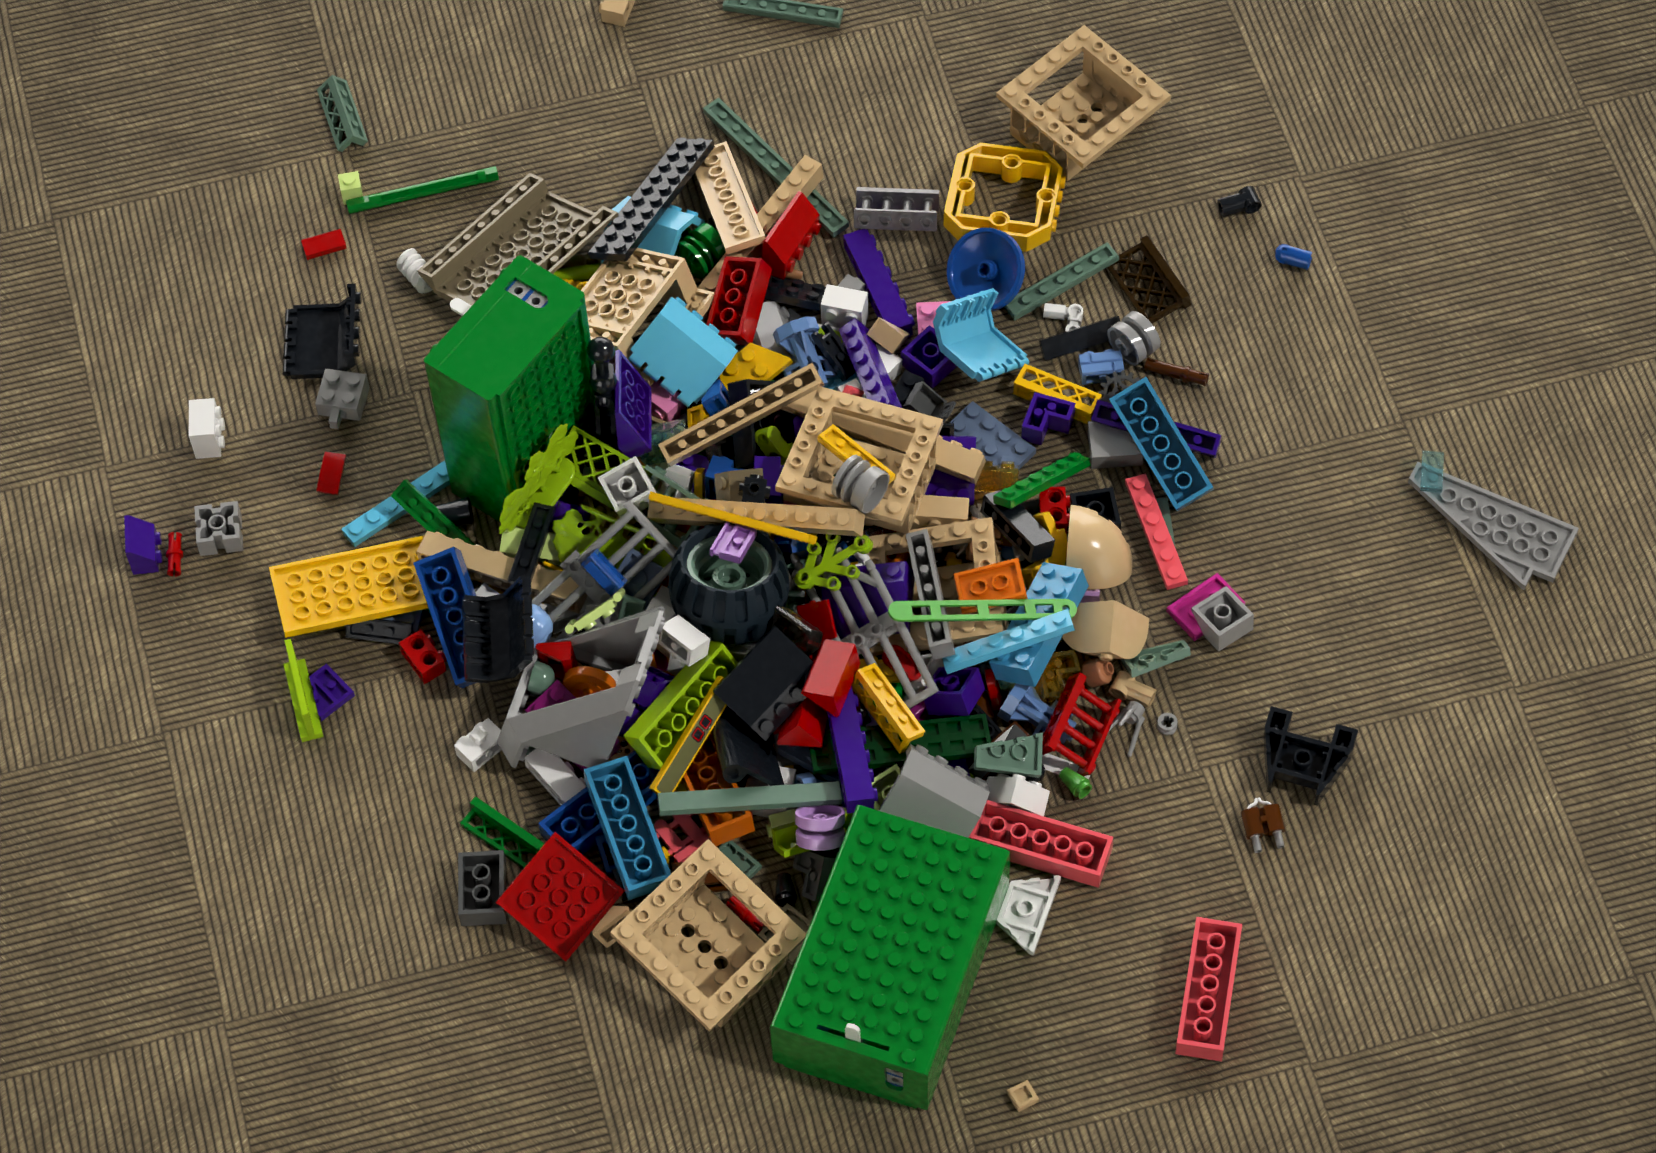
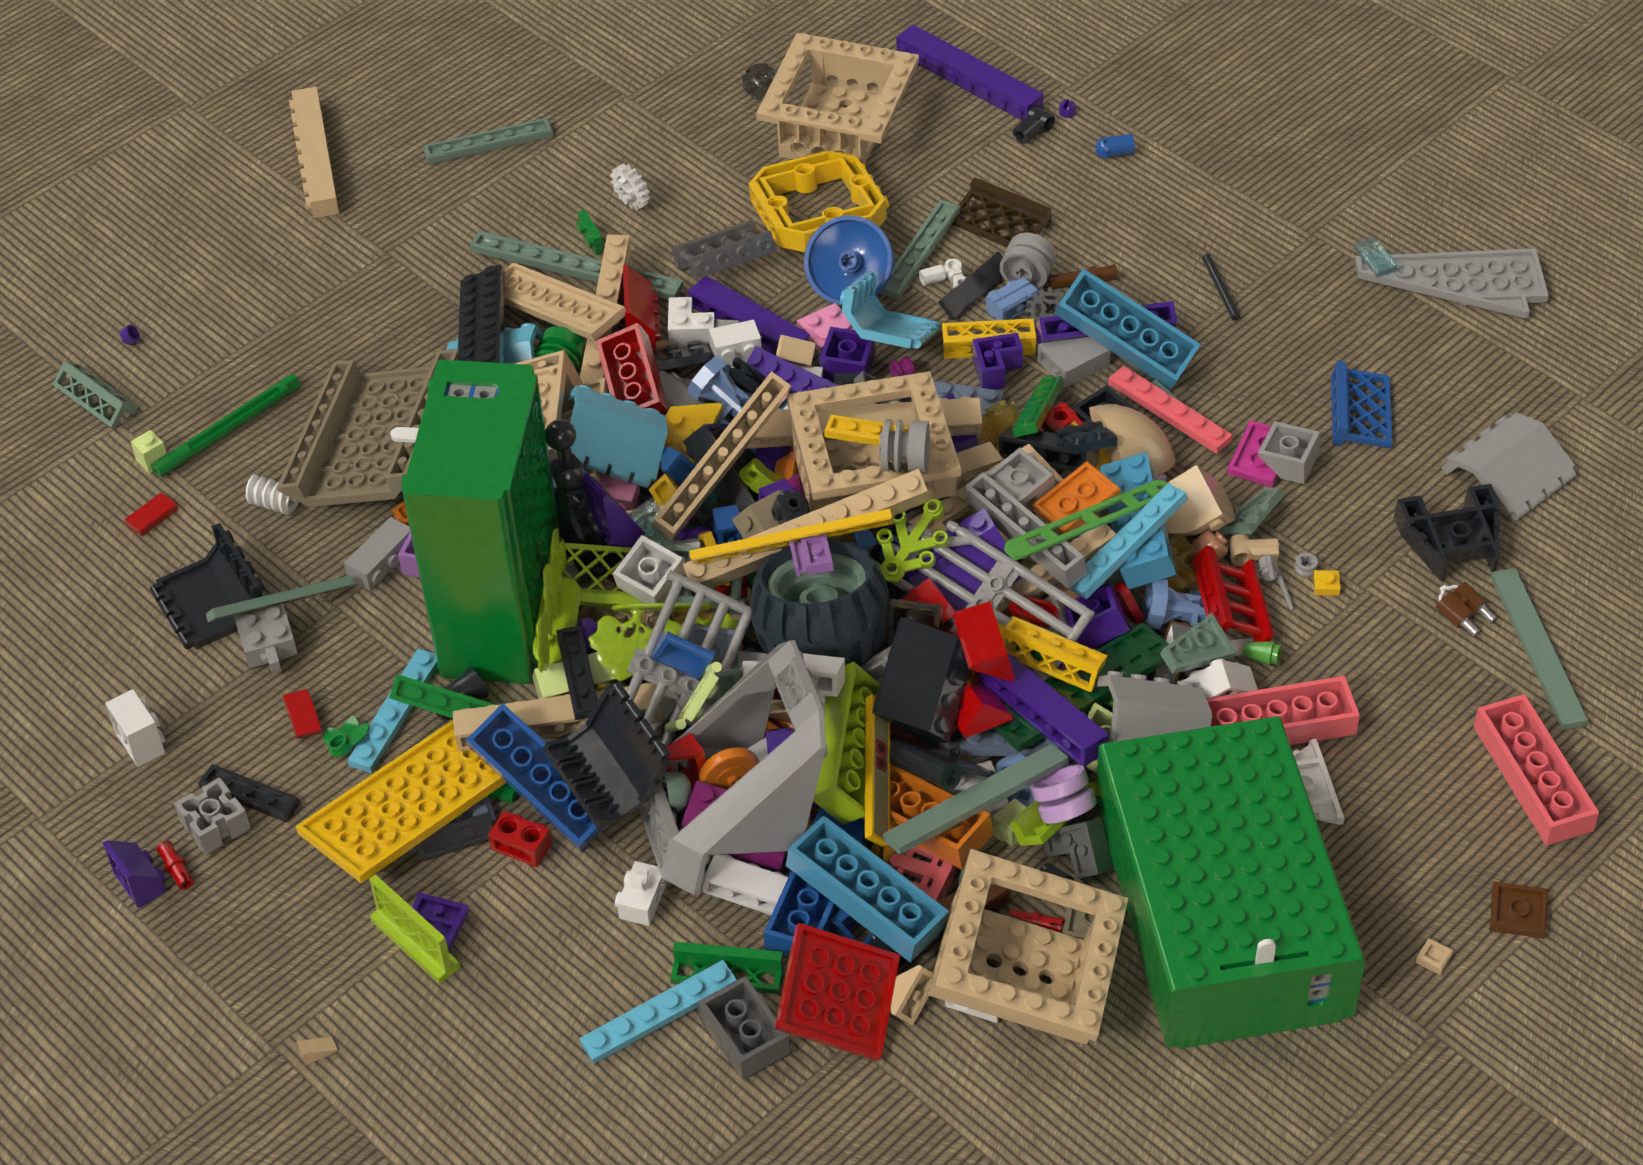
camera: 30 degrees left, 10 degrees down
(188, 748) = (316, 1049): none -> tan piece
(260, 521) = (254, 794): none -> black tile
(351, 508) = (343, 739): none -> green plate
(364, 369) = (279, 598): none -> sand green tile
(402, 71) = (130, 334): none -> dark purple hinge
(433, 843) = (655, 1012): none -> medium azure plate
(804, 133) = (591, 234): none -> green plate
(823, 264) = (688, 326): none -> white brick
(860, 112) = (630, 186): none -> white gear
(956, 547) = (1023, 476): none -> light grey plate
(968, 389) = (901, 367): none -> magenta wheel
(1036, 45) = (751, 80): none -> clear smoke plate
(1044, 536) = (1086, 437): none -> black plate
(1114, 1093) = (1518, 910): none -> reddish brown tile
(1172, 747) = (1326, 583): none -> yellow plate
(1219, 123) = (969, 72): none -> dark purple brick
(1284, 199) = (1070, 111): none -> dark purple hinge
(1286, 435) = (1221, 288): none -> black bar
(1298, 889) = (1539, 649): none -> sand green tile
(1304, 591) = (1340, 400): none -> blue fence
(1400, 720) = (1518, 461): none -> light grey hinge

